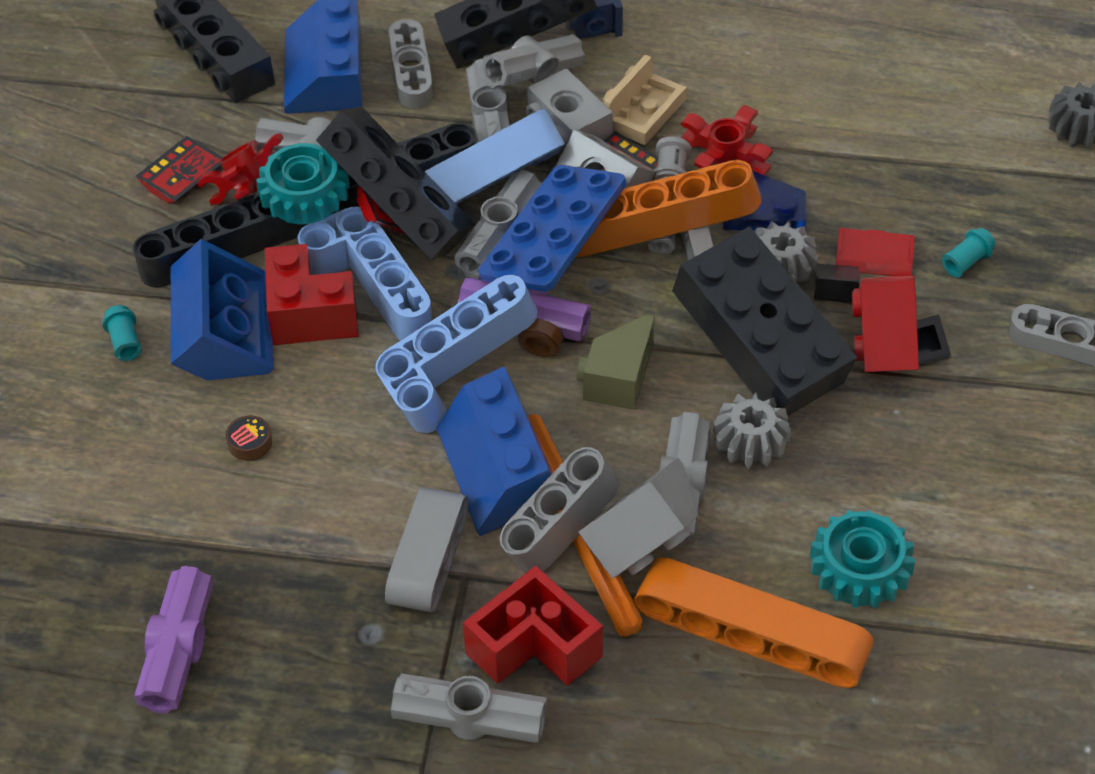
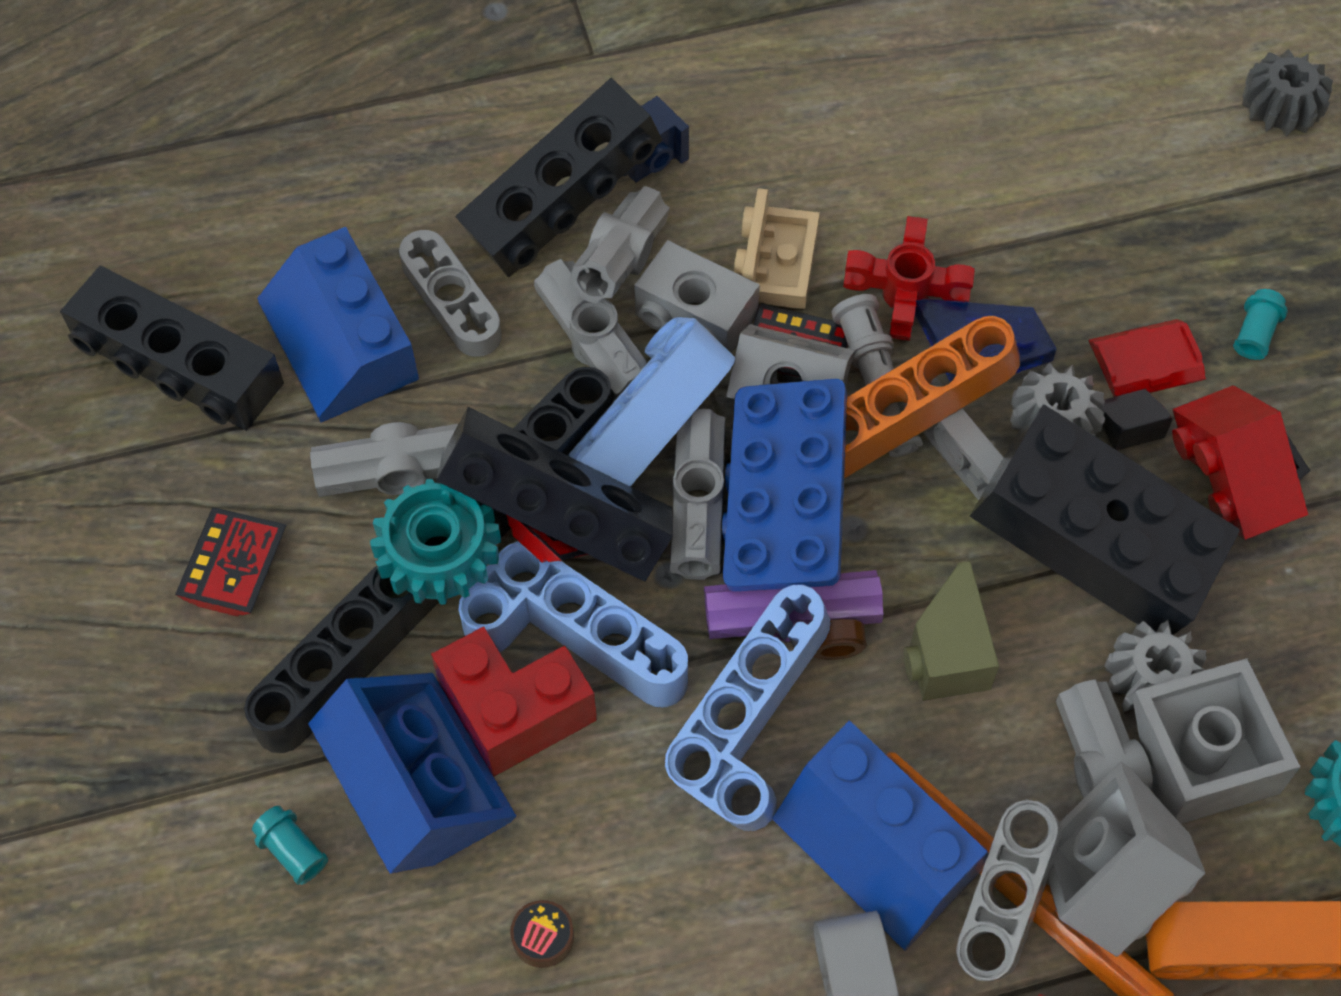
camera: 25 degrees left, 10 degrees up
(240, 170) = (331, 539): red pin -> none
(757, 479) = (1212, 741): none -> light grey slope

